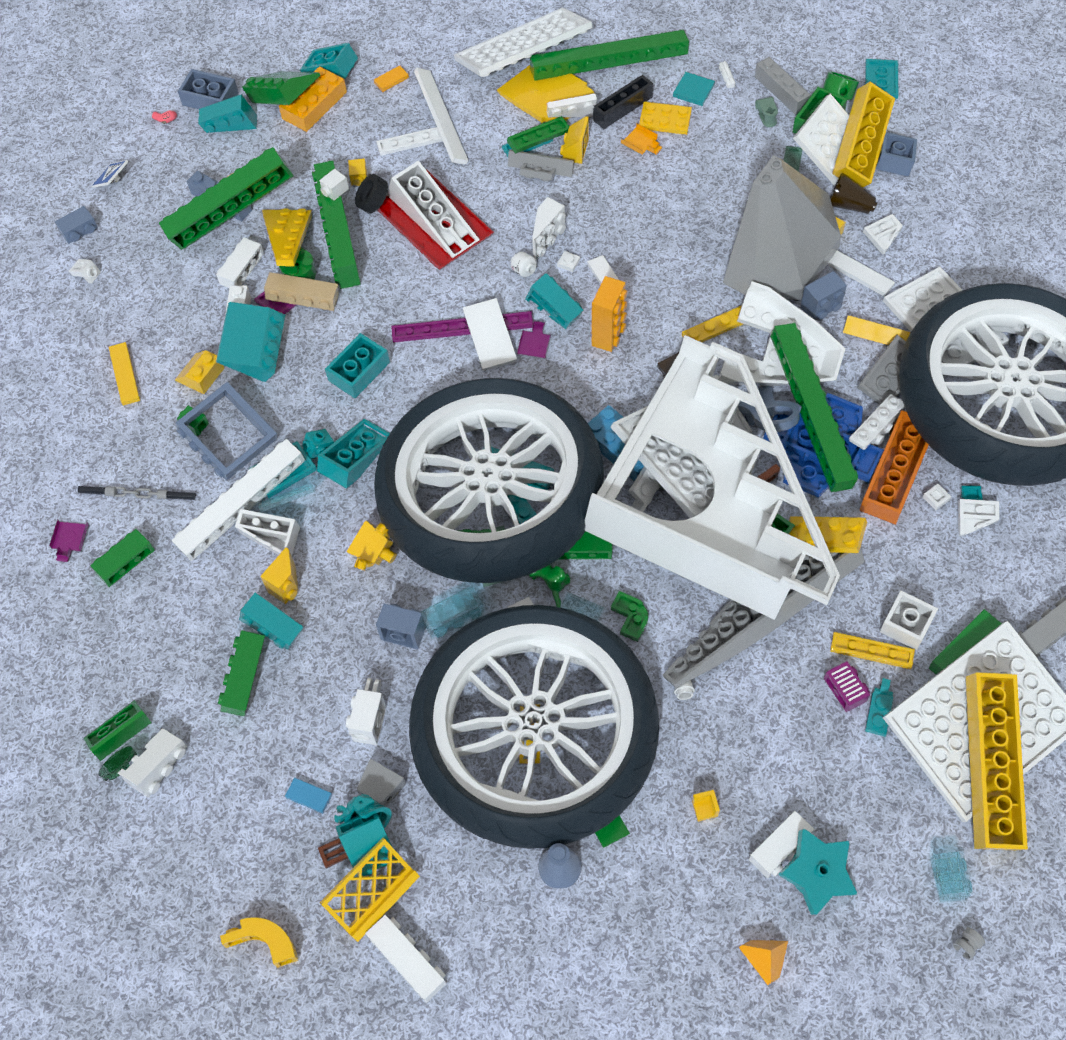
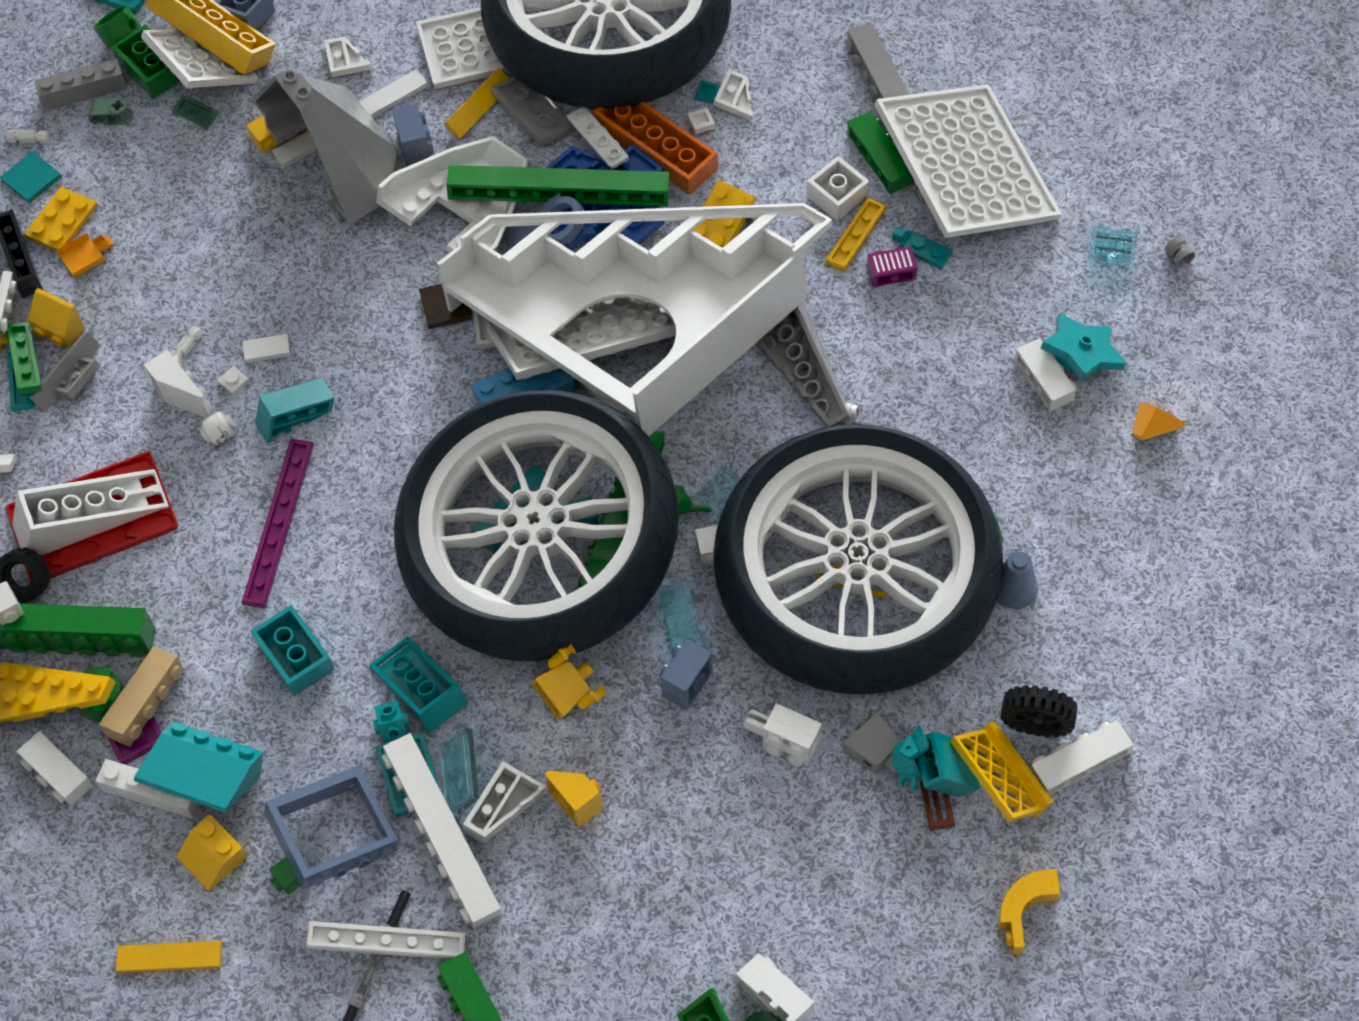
camera: 75 degrees left, 0 degrees up
(153, 493) = (384, 940): none -> white tile
(242, 673) = (687, 870): green brick -> none
(270, 621) = (626, 825): teal wedge -> none
(308, 795) = (862, 827): dark azure tile -> none
(430, 907) = (1039, 711): none -> black wheel
(489, 334) = (307, 491): white tile -> none
(534, 342) = (338, 447): magenta piece -> none
(587, 223) = (187, 343): none -> white axle
(609, 314) = (353, 343): light orange brick -> none
(634, 611) = (742, 435): green plate -> none
(705, 805) = (986, 428): yellow panel -> none
(714, 326) = (398, 255): yellow plate -> none
(851, 196) = (291, 59): dark brown cone -> none
(996, 762) = (1016, 161): yellow brick -> none

